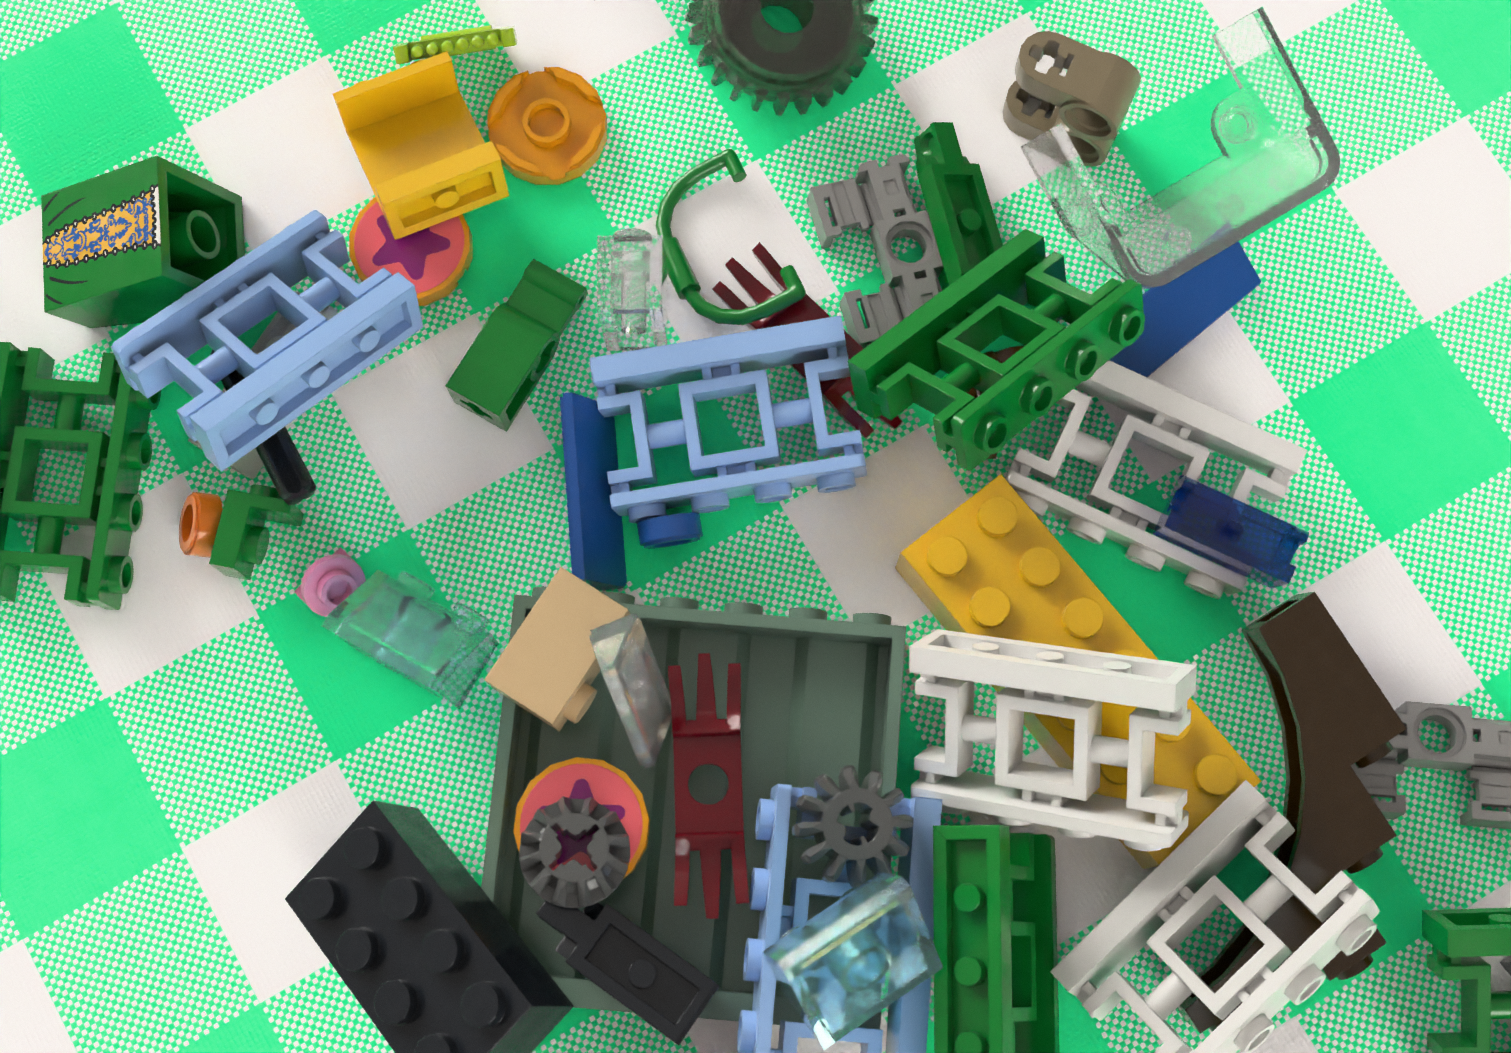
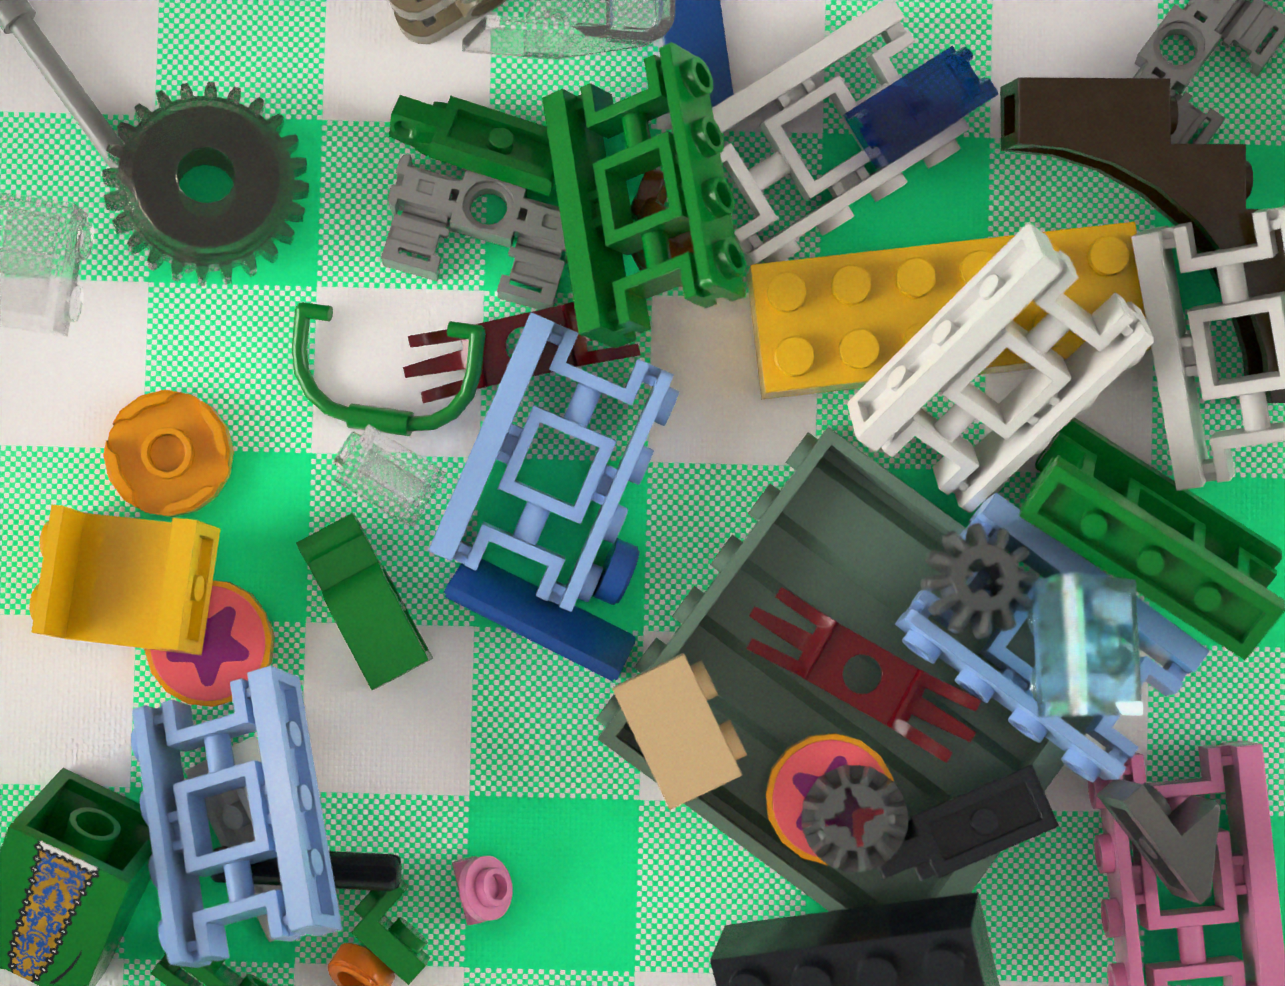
camera: 65 degrees left, 10 degrees up
(414, 635) = (578, 844): clear light blue slope -> none
(456, 43) = (37, 488): lime piece -> none
(634, 684) = (749, 687): clear slope -> none

